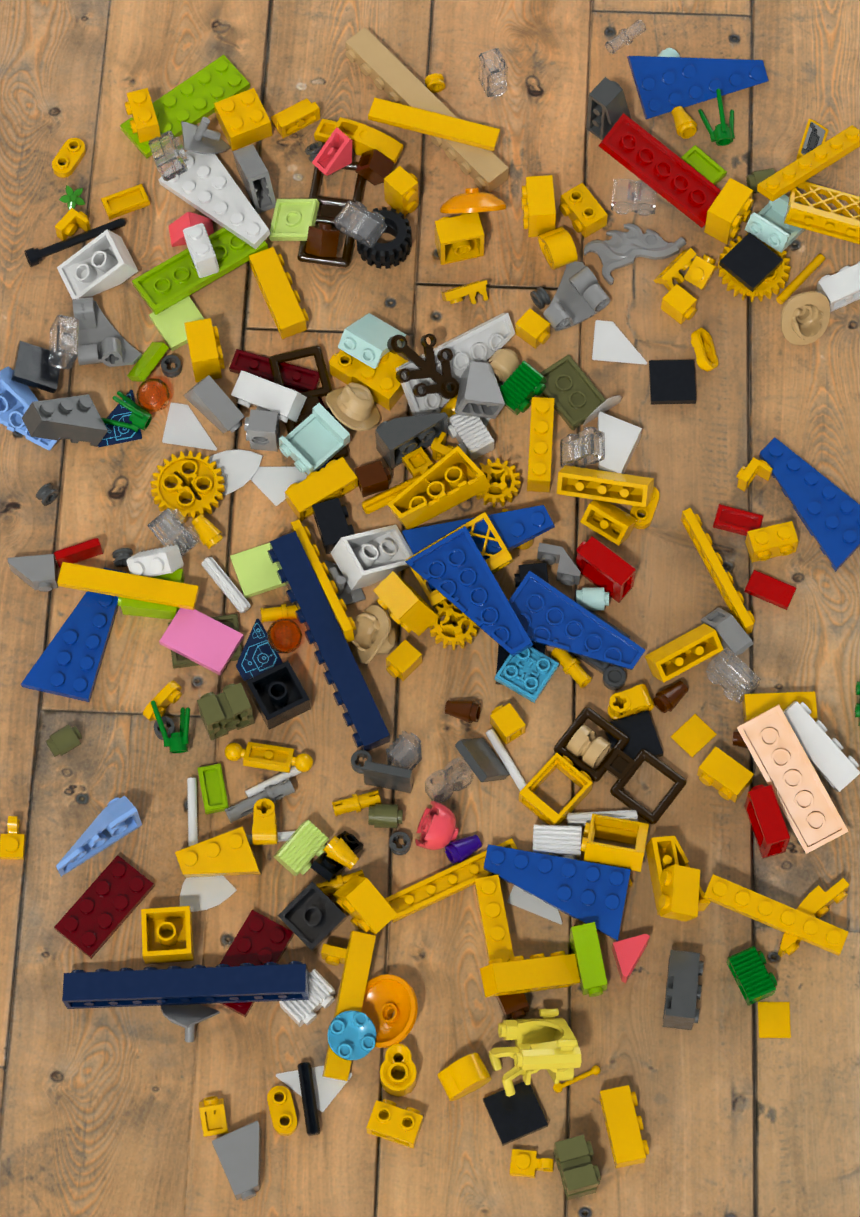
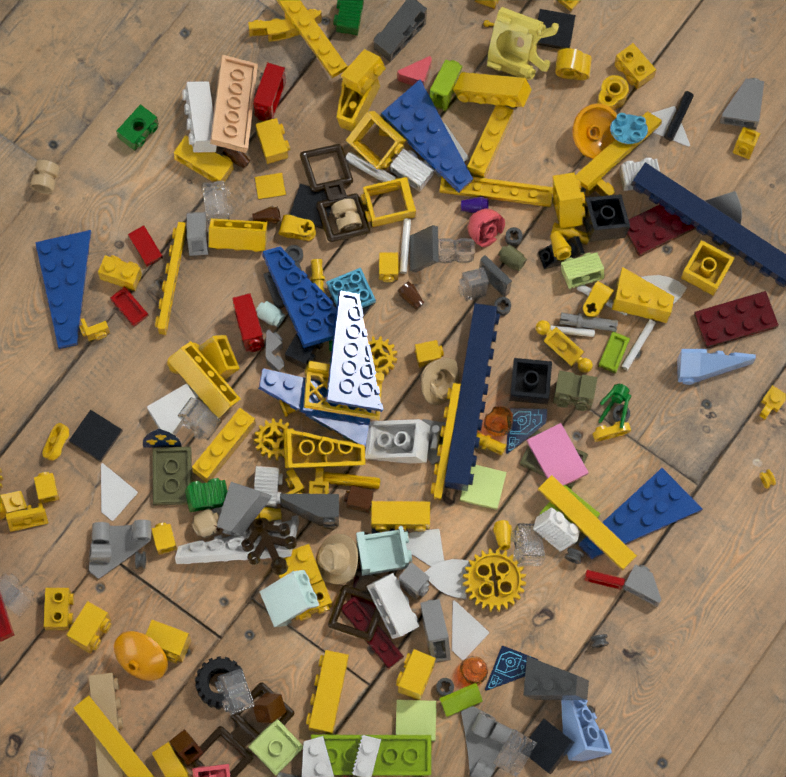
camera: 150 degrees left, 5 degrees up
(64, 740) = (696, 447): olive brick -> none
(139, 417) = (496, 658): green plant -> none
(226, 585) = (513, 489): white axle -> none
(282, 1110) = (699, 119): yellow plate -> none
(331, 522) = (411, 481): black brick -> none
(356, 802) = (525, 279): yellow pin -> none
(401, 191) = (180, 708): yellow brick -> none
(404, 604) = (403, 382): yellow brick -> none
(455, 295) = (191, 601): yellow plate -> none
(558, 247) = (100, 588): yellow piece -> none
(627, 246) = (46, 562): light grey piece -> none

